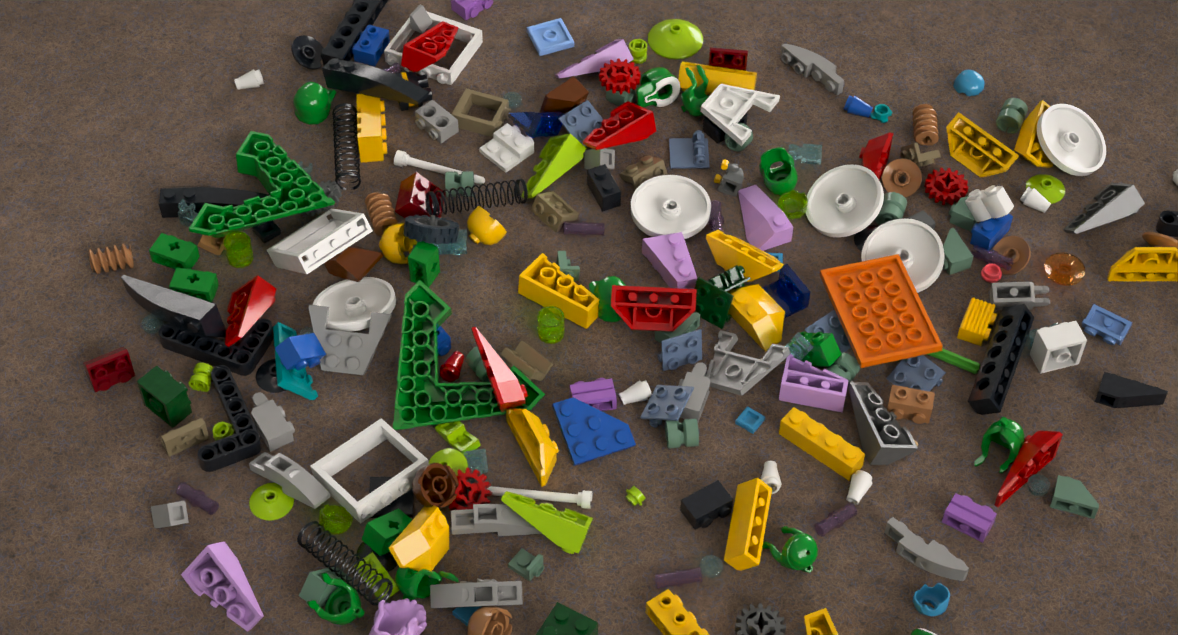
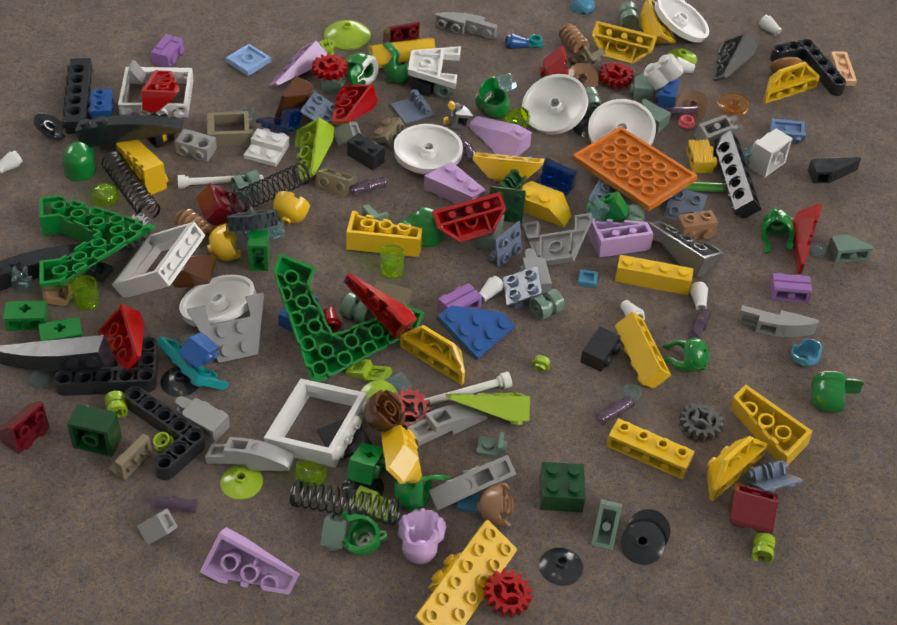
camera: 30 degrees left, 5 degrees down
(319, 147) = (104, 194): none -> clear neon green hair

